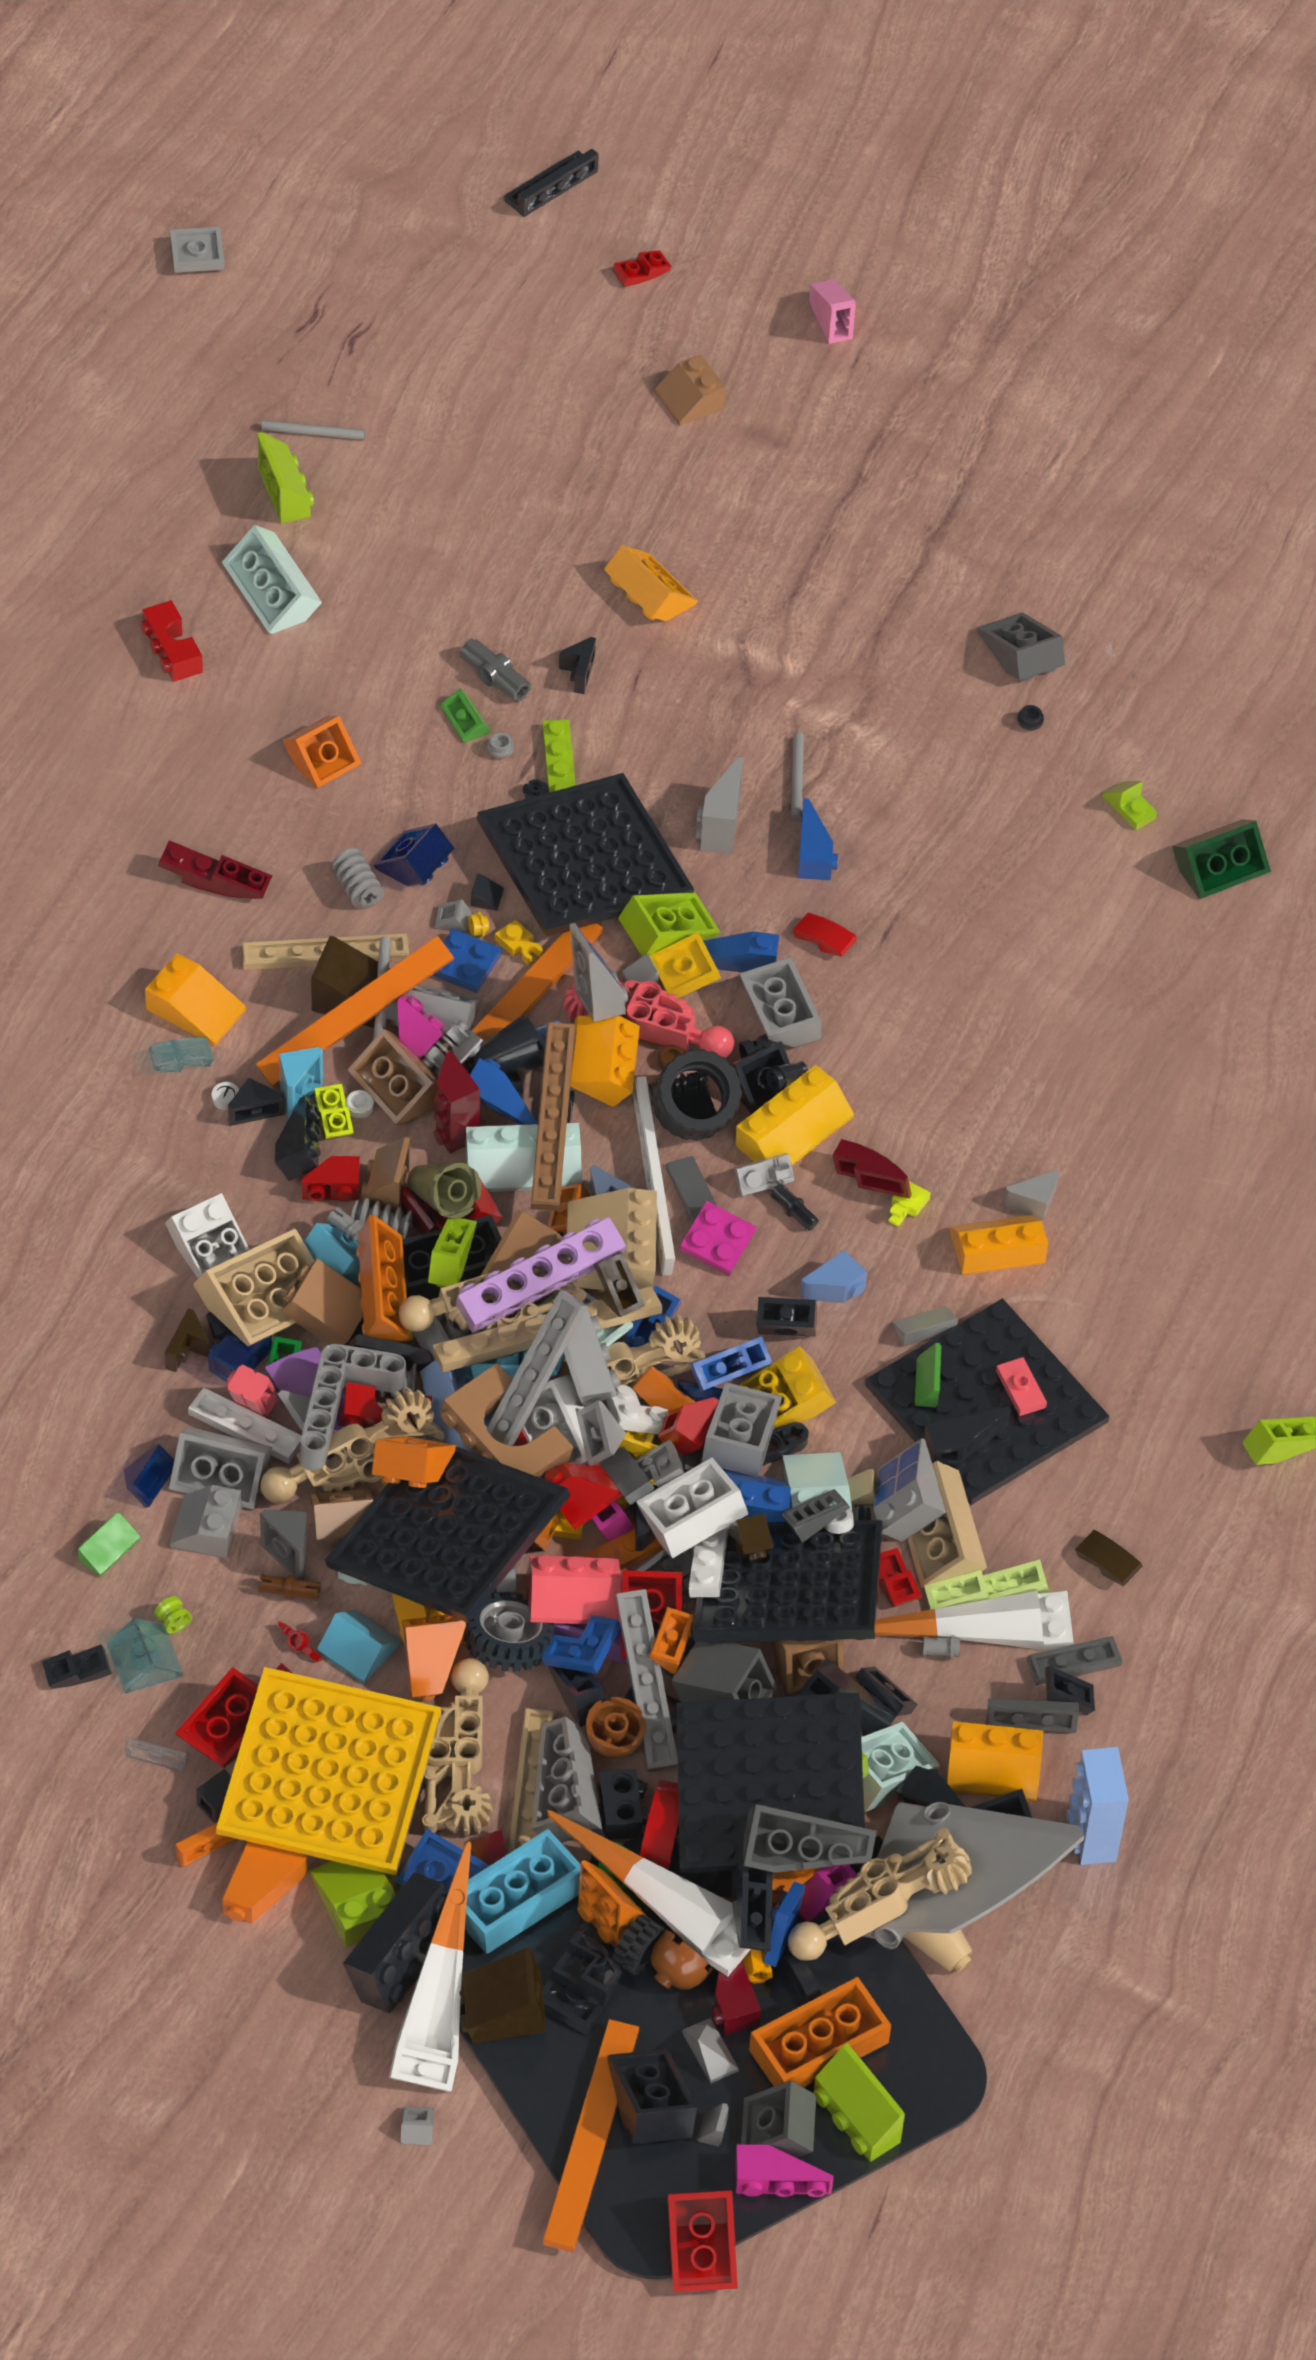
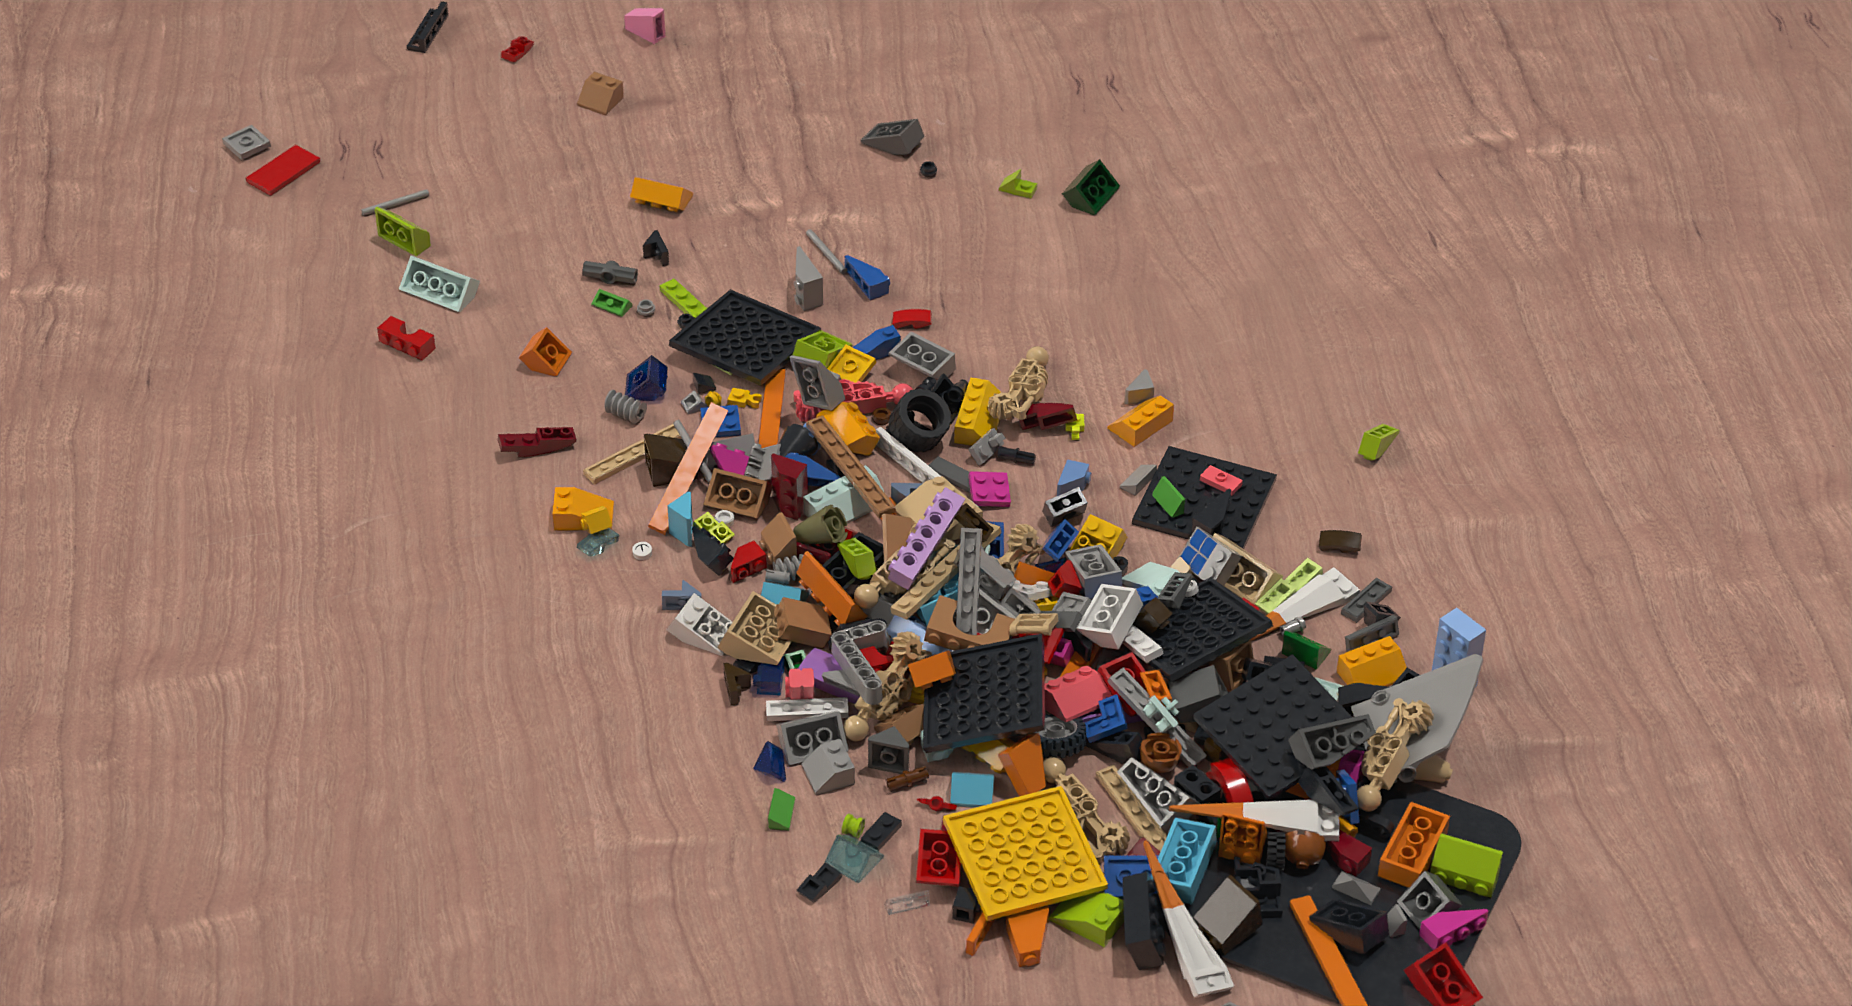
camera: 30 degrees left, 10 degrees down
(192, 1025) = (596, 520): none -> yellow brick
(204, 1640) = (881, 831): none -> black plate
(207, 1186) = (678, 598): none -> sand blue slope
(213, 313) = (283, 170): none -> red tile
(255, 1103) = (666, 543): black slope -> none
(584, 1457) = (1034, 624): none -> tan plate
(652, 1678) = (1167, 719): none -> light aqua hips
(879, 1110) = (1025, 383): none -> tan arm
(932, 1685) = (1304, 649): none -> green slope

